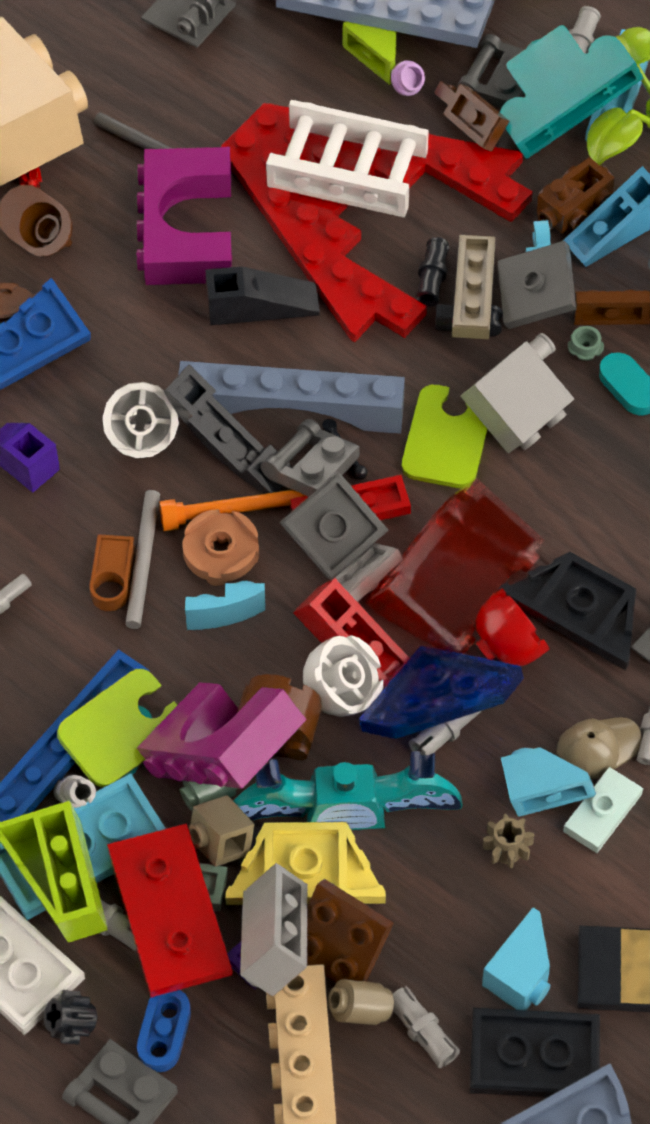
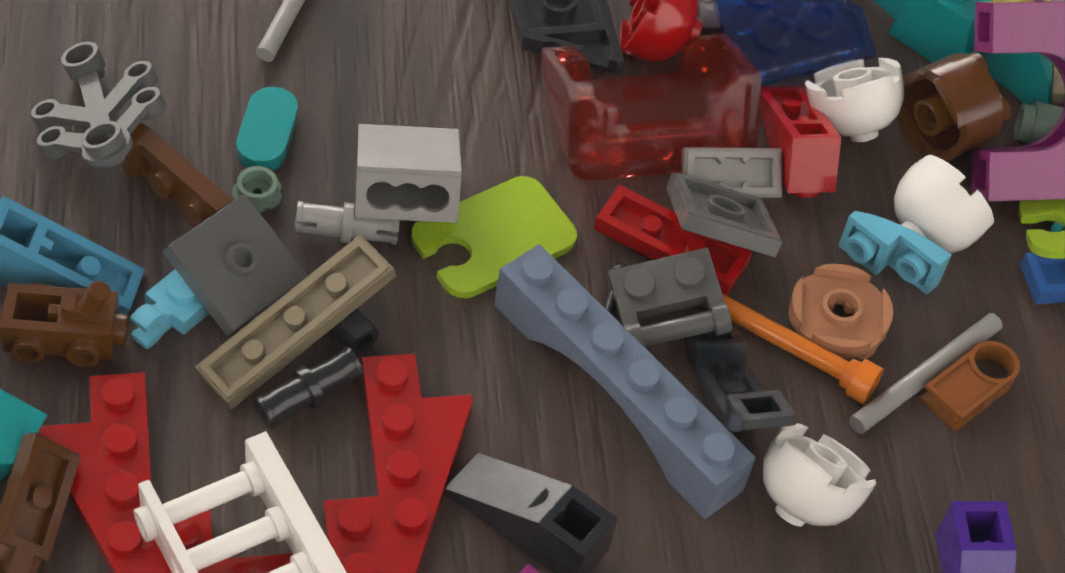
camera: 145 degrees left, 5 degrees down
(222, 649) = (939, 207): none -> white cylinder

